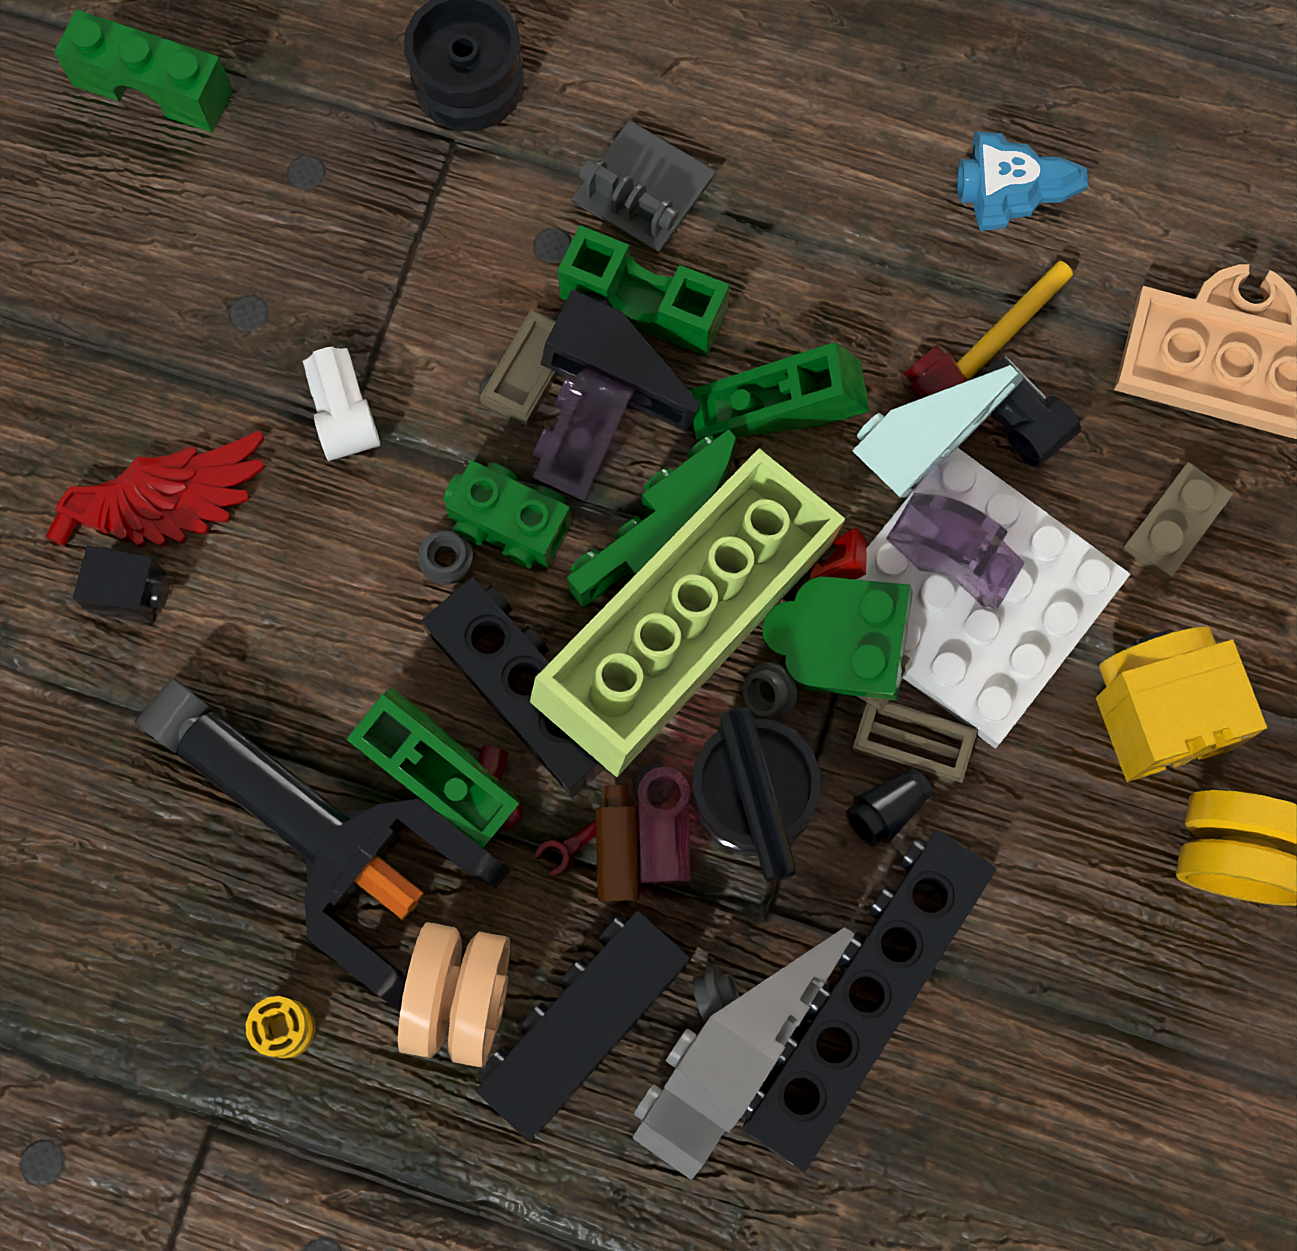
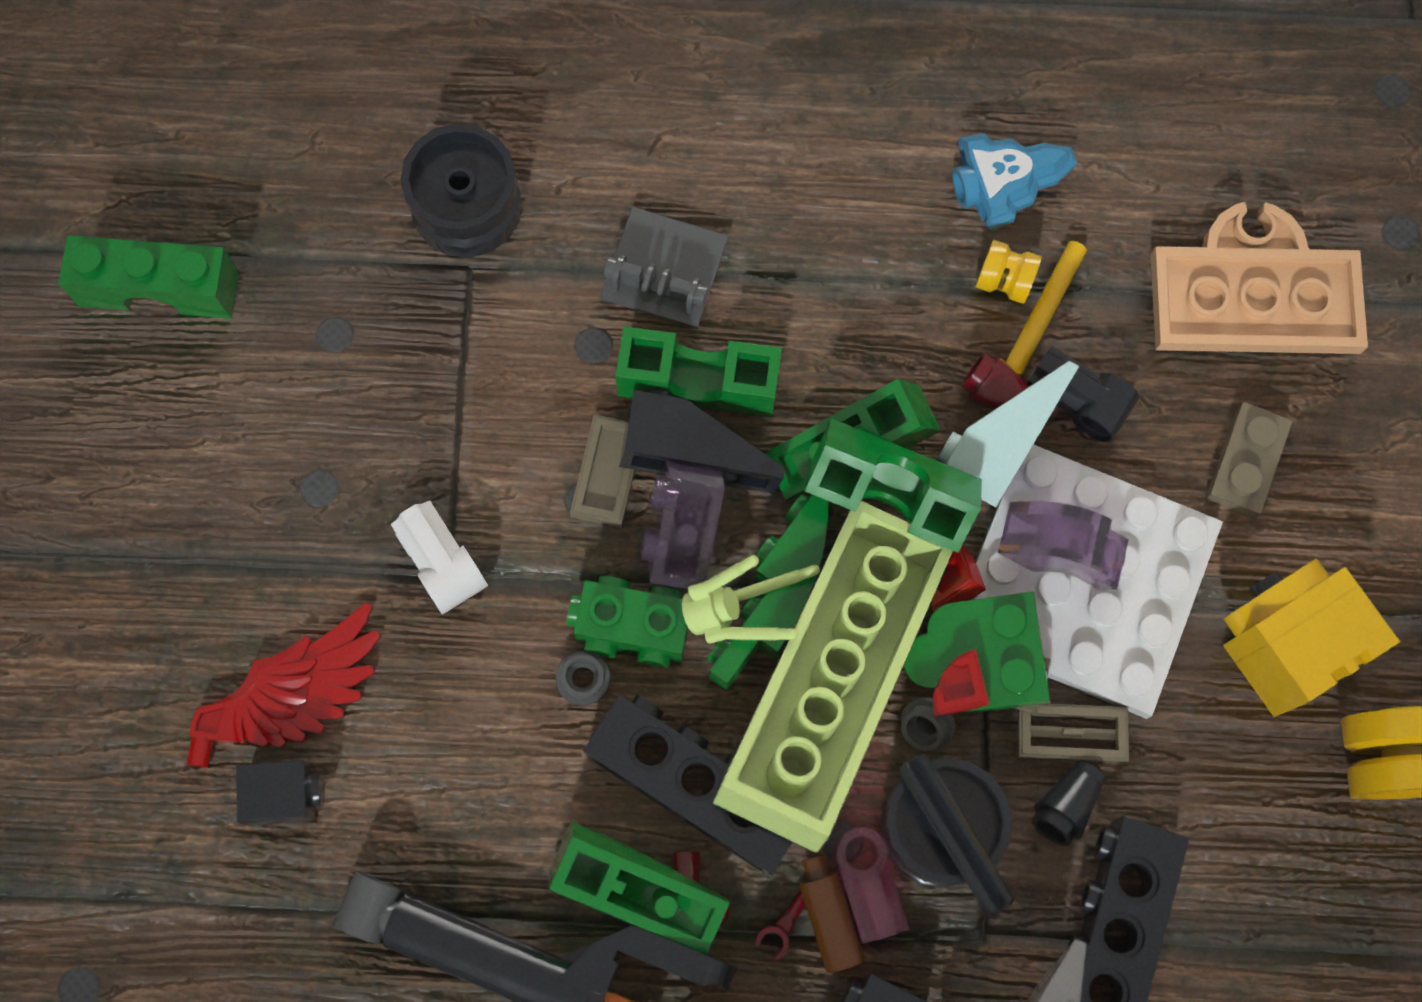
camera: 20 degrees left, 0 degrees up
(585, 517) = (712, 608): none -> yellowish green plant
(773, 418) = (931, 495): none -> green arch
(809, 658) = (960, 687): none -> red tile
(996, 279) = (1020, 275): none -> yellow wheel

